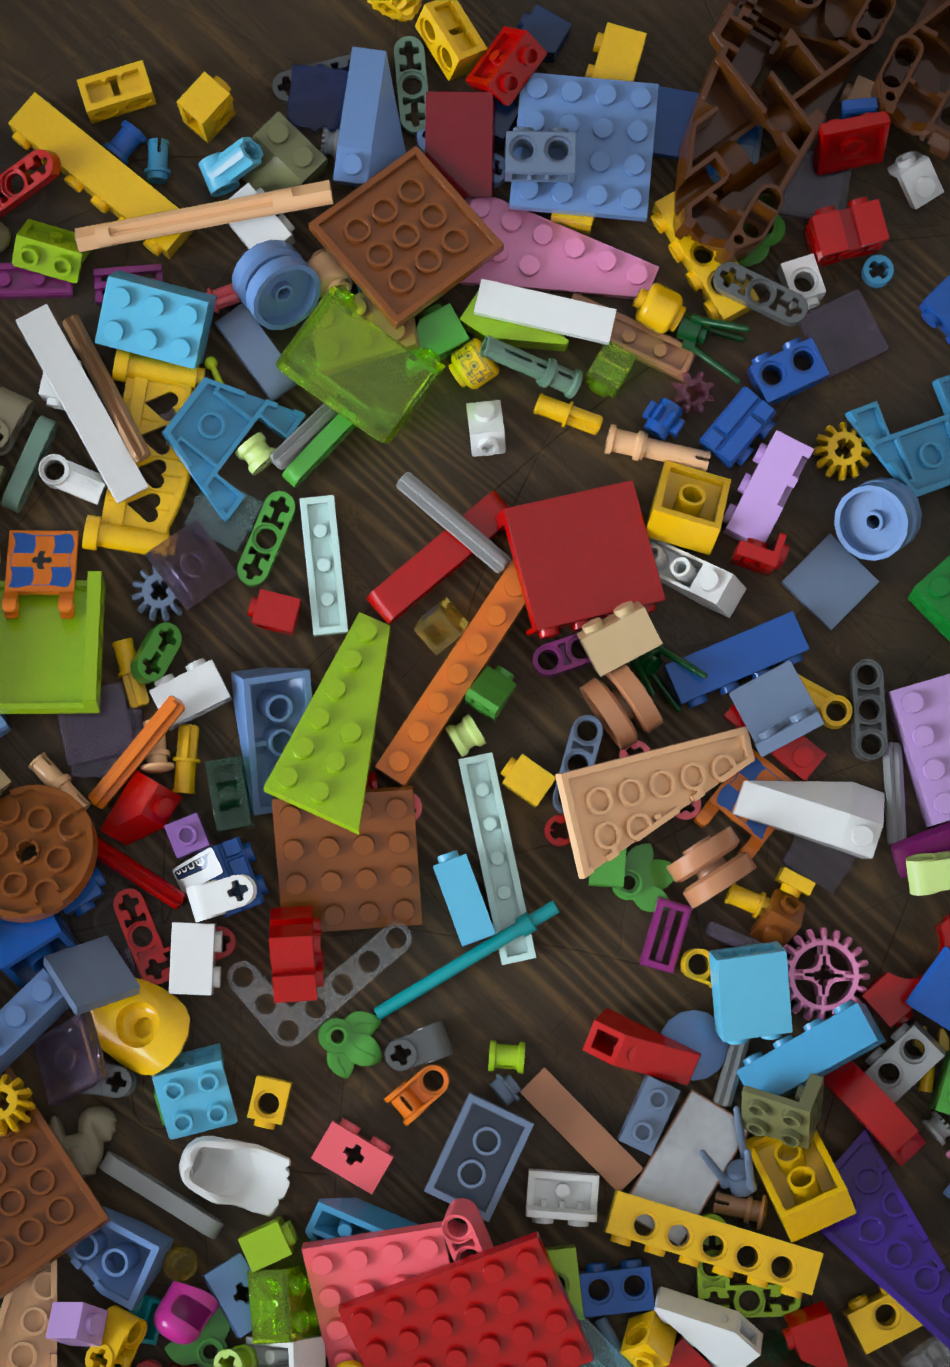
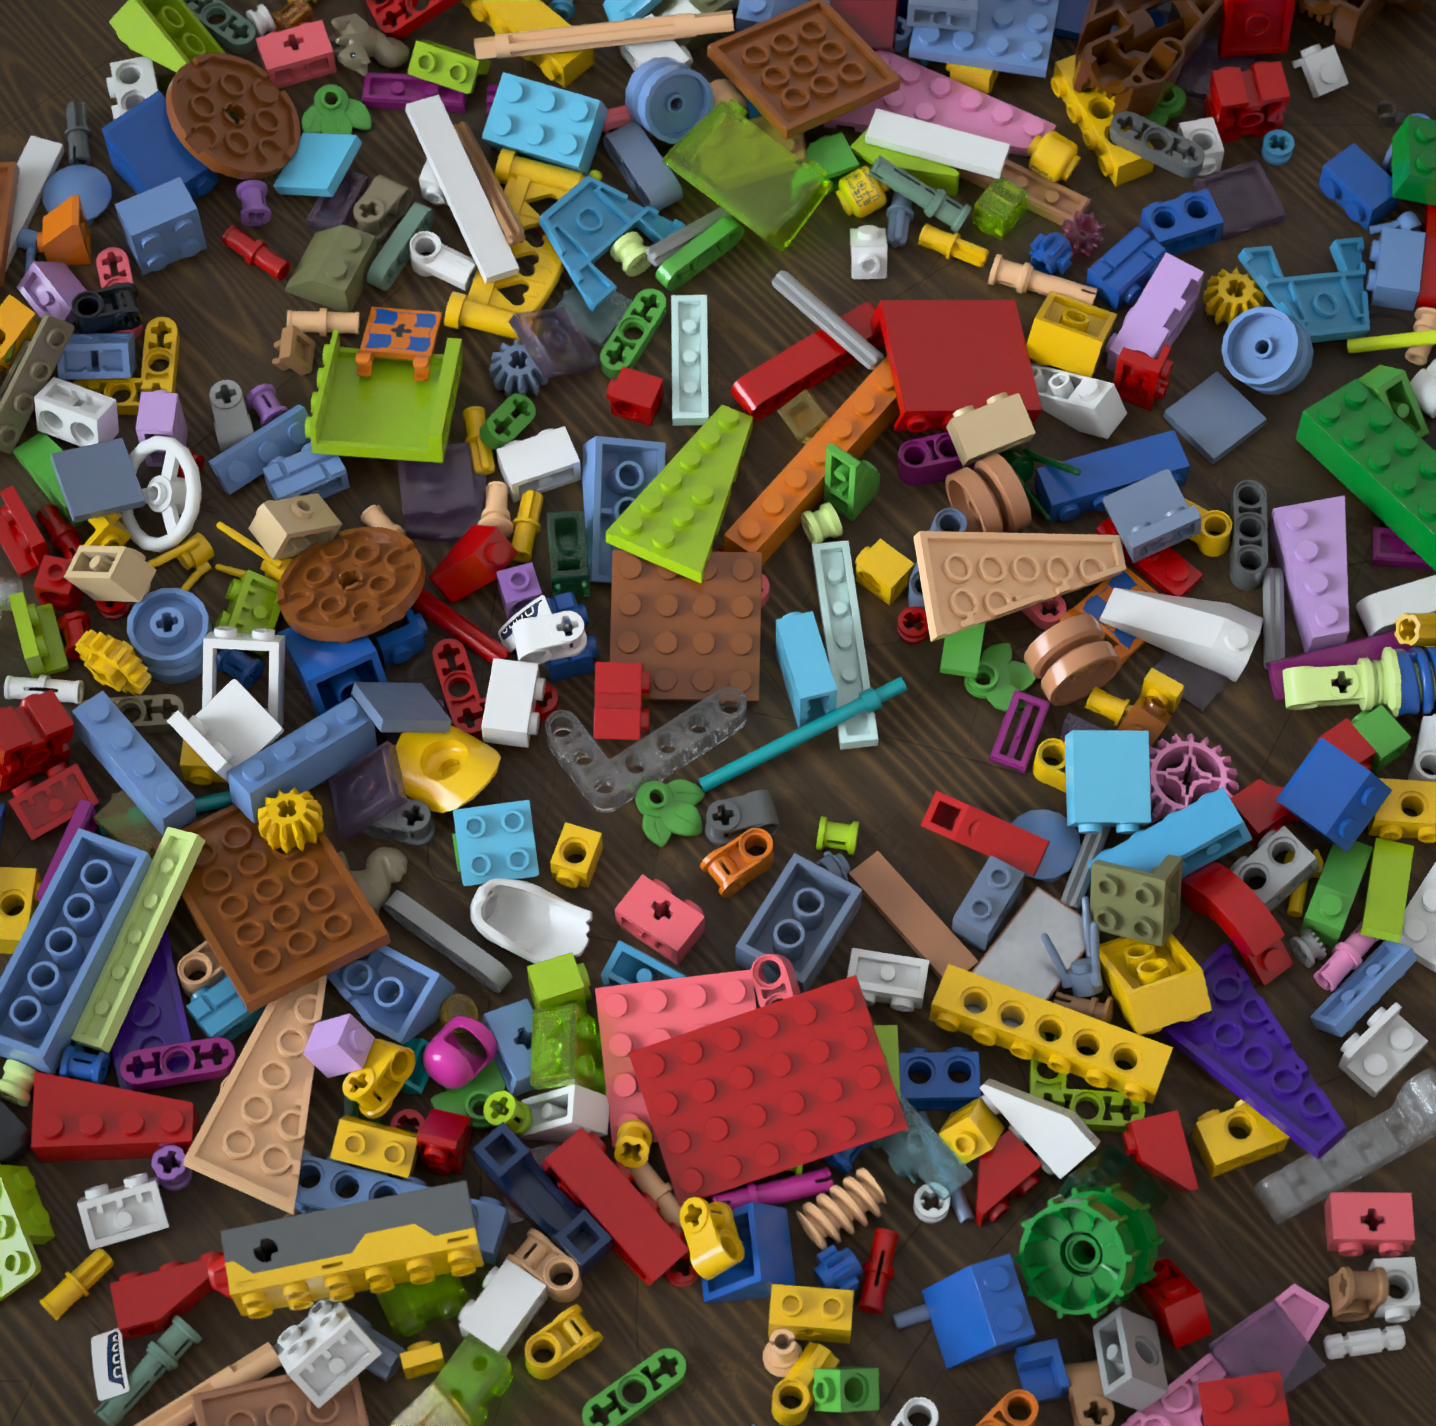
camera: 10 degrees right, 20 degrees down
(136, 752) = (476, 505): orange axle -> none
(512, 392) = (899, 217): none -> sand blue axle
(696, 330) = (1088, 180): dark green plant -> none

